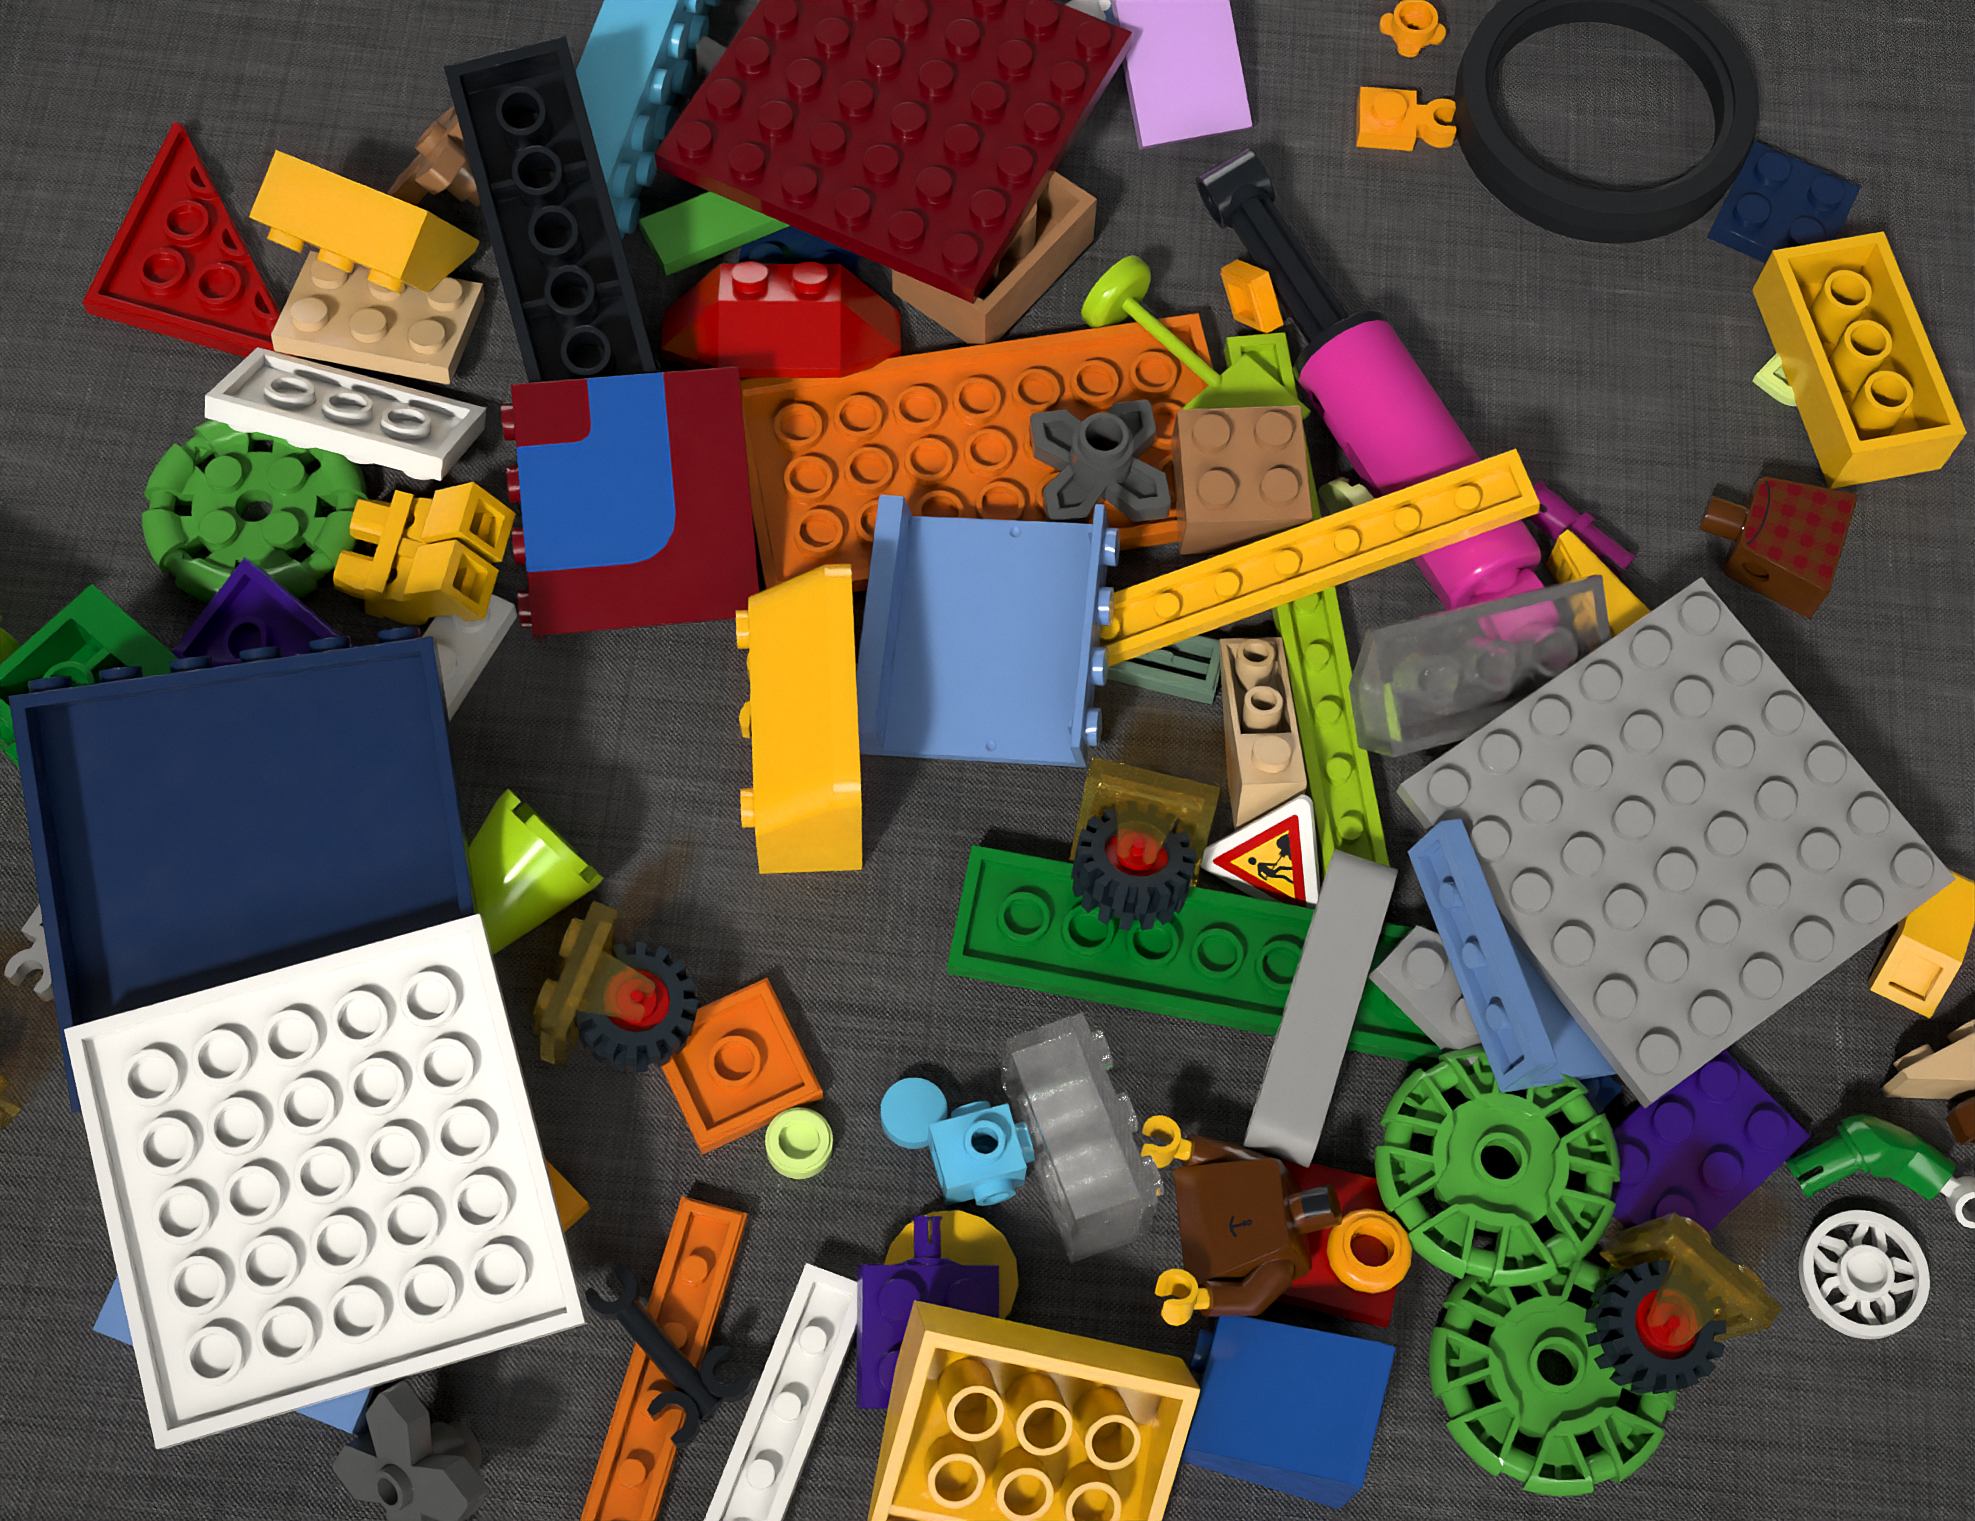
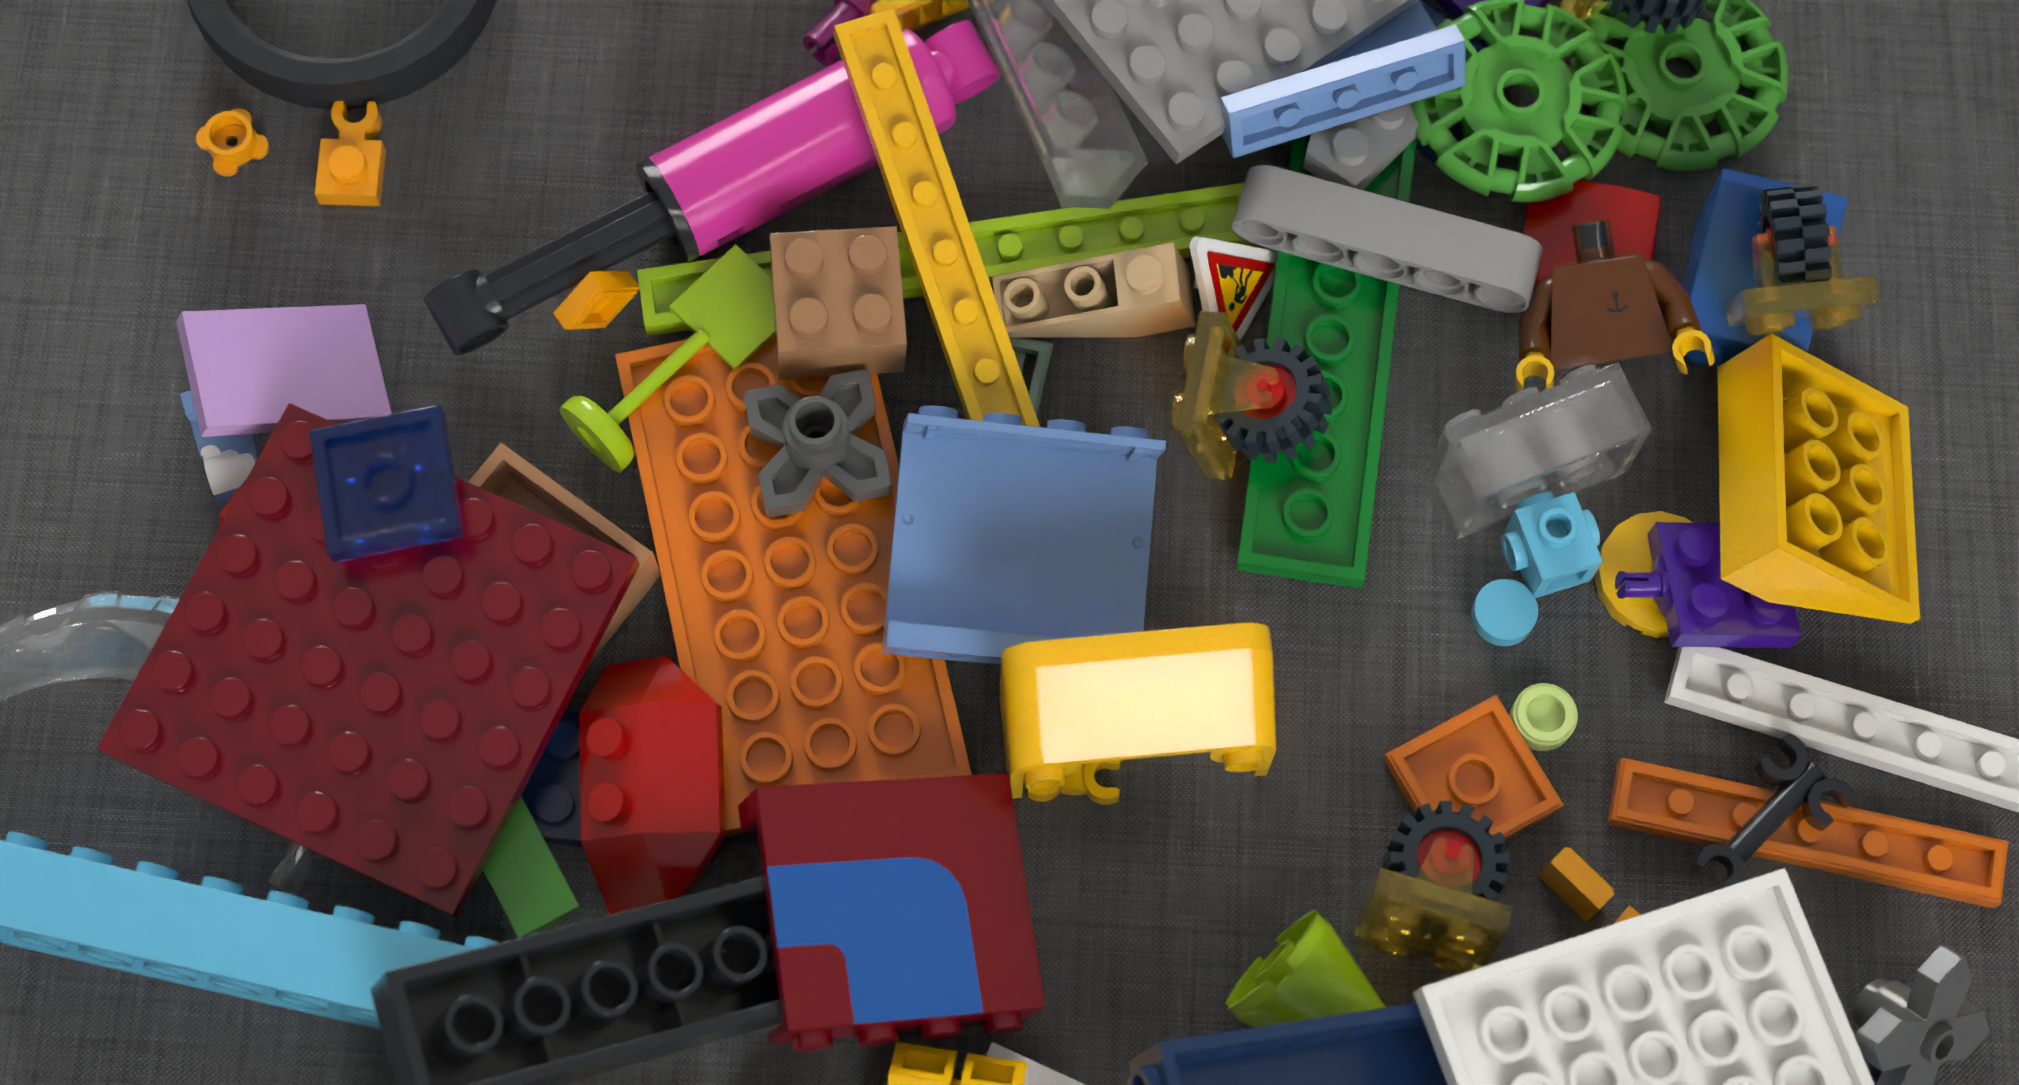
camera: 90 degrees left, 5 degrees up
(613, 1148) = (1577, 883): none -> light orange tile
(1042, 86) = (386, 483): none -> clear blue plate
(1260, 1401) = (1798, 269): none -> plate
(1341, 496) = (841, 212): yellowish green tile -> none
(1355, 1273) = (1613, 184): light orange piece -> none

